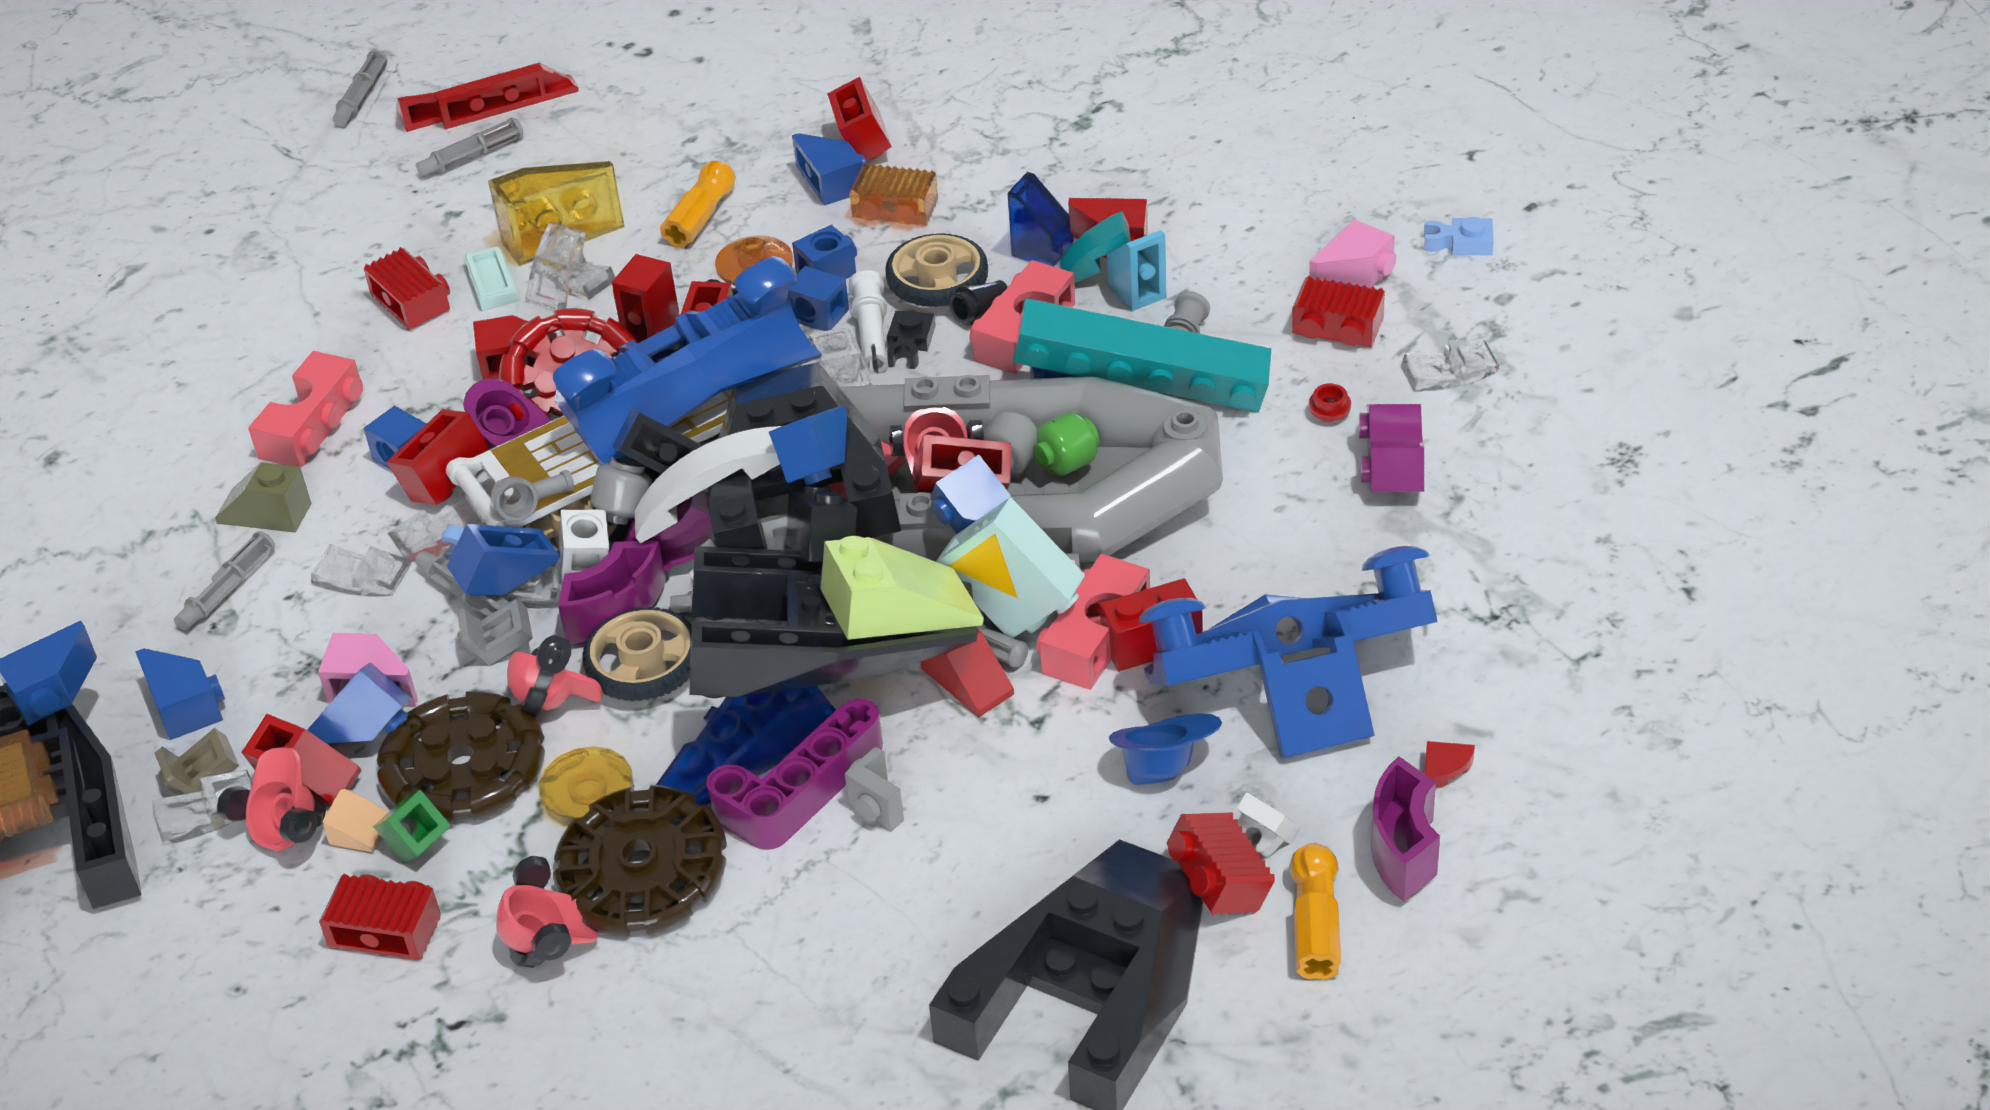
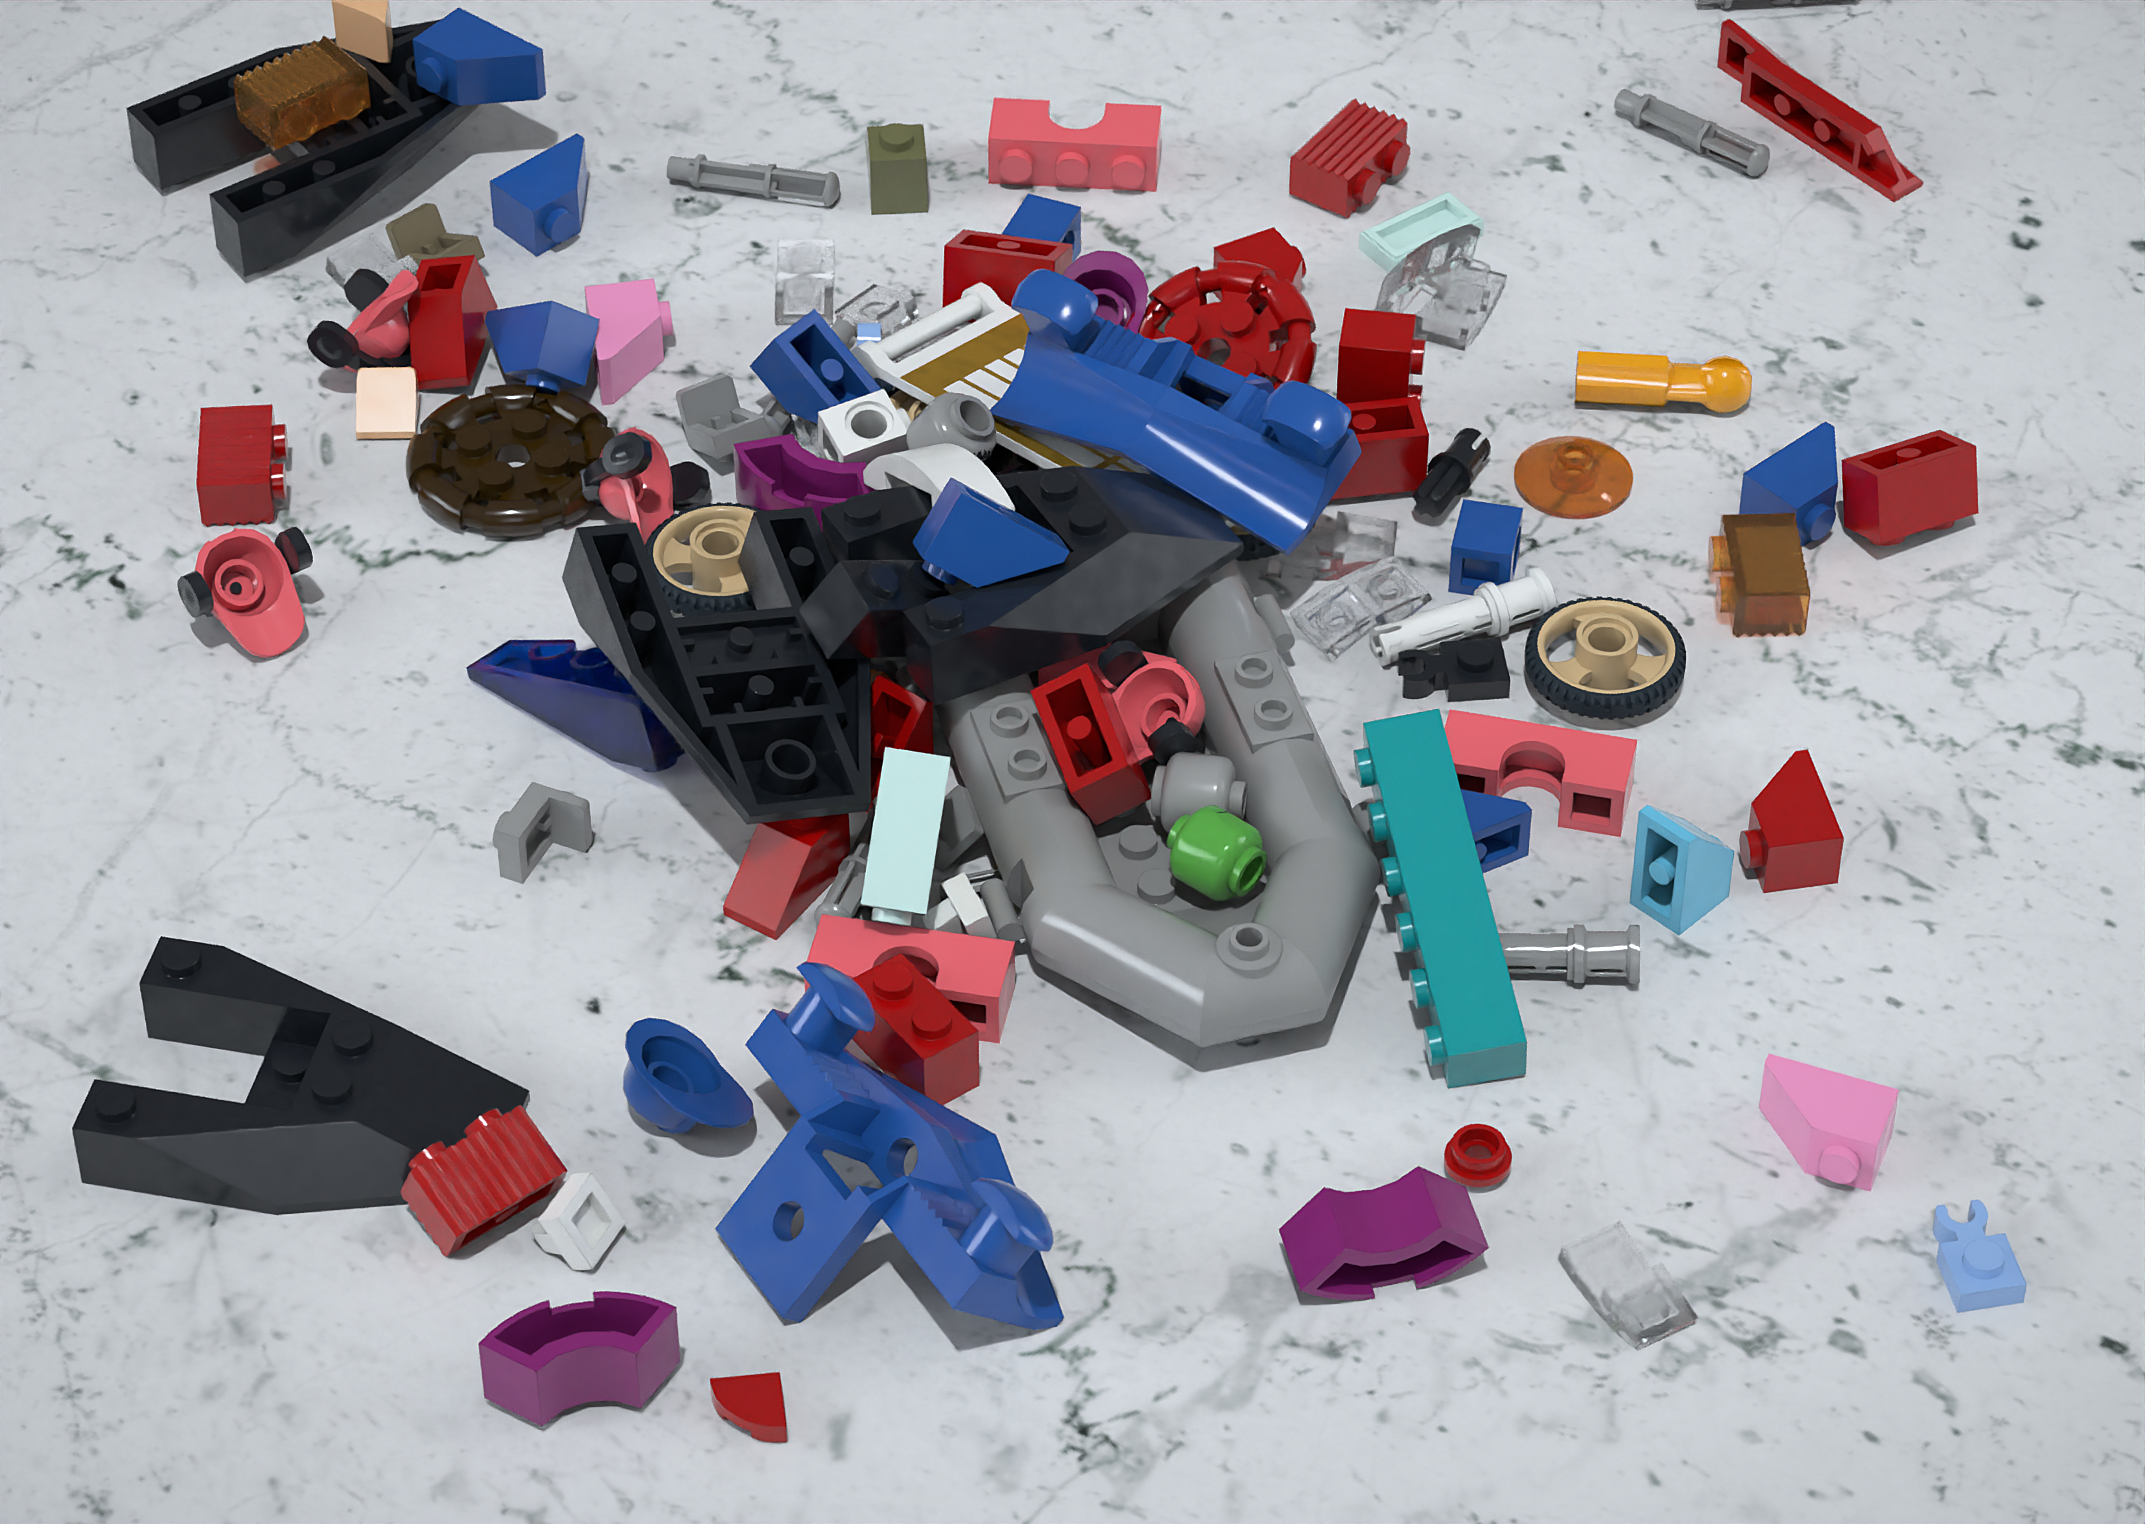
camera: 70 degrees right, 0 degrees up
(423, 819) = (359, 441): green plate -> none
(527, 494) = (899, 342): light grey bar -> none
(567, 194) = (1542, 230): clear yellow slope -> none
(580, 779) = (495, 581): clear yellow tile -> none
(651, 880) = (326, 653): dark brown plate -> none
(652, 442) = (1001, 420): black brick -> none
(781, 803) = (502, 751): magenta beam -> none
(826, 251) = (1582, 535): blue brick -> none
(891, 590) = (774, 705): yellowish green slope -> none
(967, 494) = (998, 763): slope -> none
(974, 300) = (1553, 707): black cone -> none
(1037, 222) = (1737, 728): clear blue slope -> none
(1103, 238) = (1715, 808): teal slope -> none
(1316, 912) = (428, 1300): light orange piece -> none
(1338, 311) = (1688, 1126): red brick -> none

